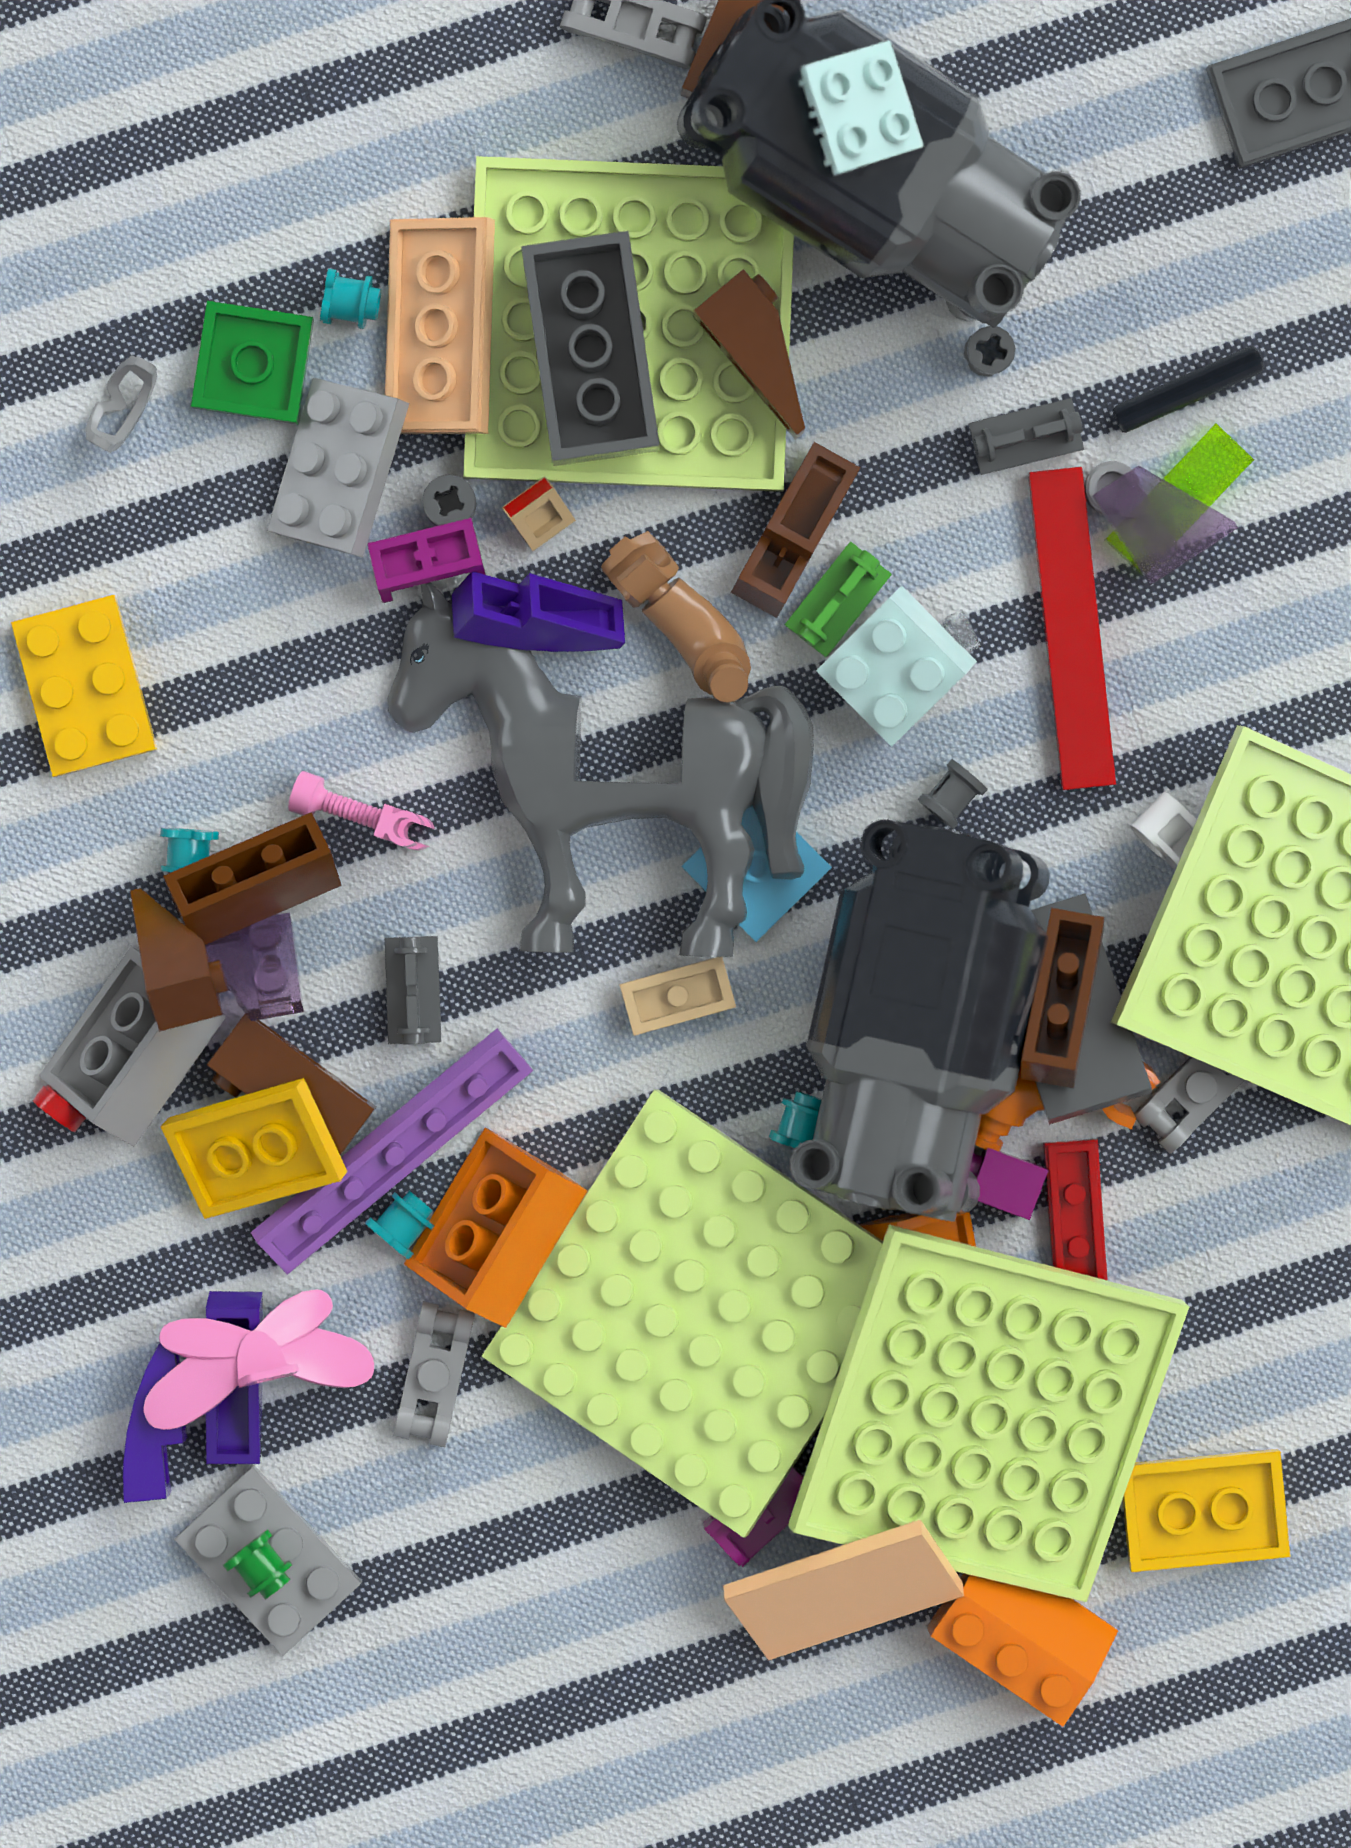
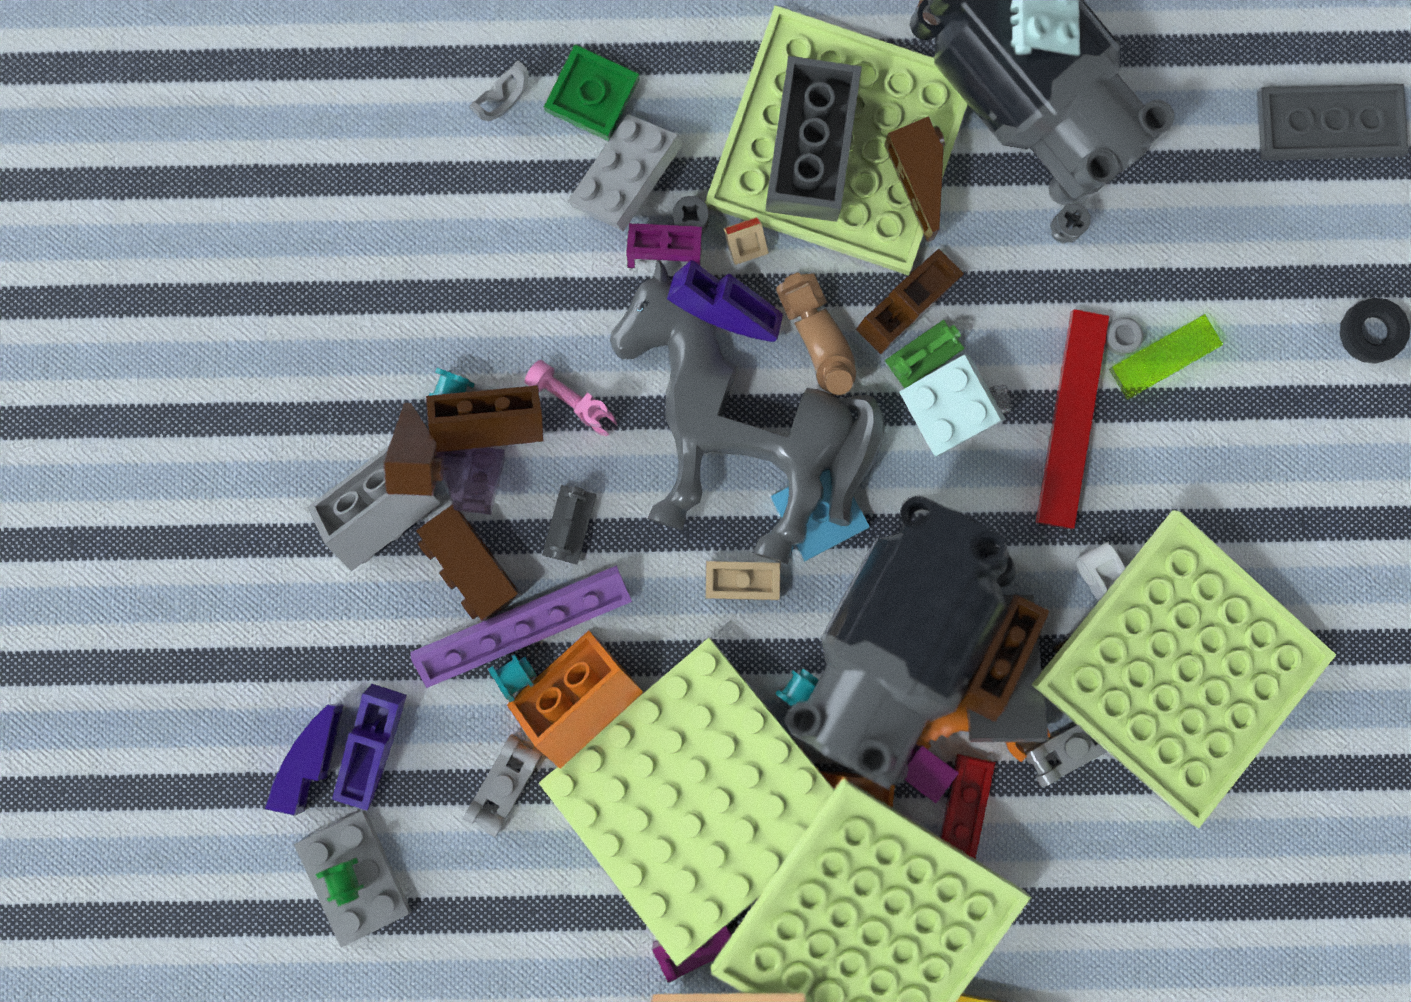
camera: 20 degrees right, 5 degrees down
(58, 1108) = (309, 531): red tile -> none
(84, 685) = (418, 265): yellow plate -> none
(229, 1356) = (367, 731): bright pink piece -> none
(254, 1148) = (429, 595): yellow plate -> none
(349, 299) = (665, 71): teal brick -> none
(440, 322) = (720, 102): light nougat tile -> none
(952, 794) = (966, 499): dark grey bush -> none
(1026, 436) = (1078, 286): dark grey hinge -> none
(1159, 522) = (1152, 365): wing -> none
(1188, 389) = (1192, 287): black axle -> none

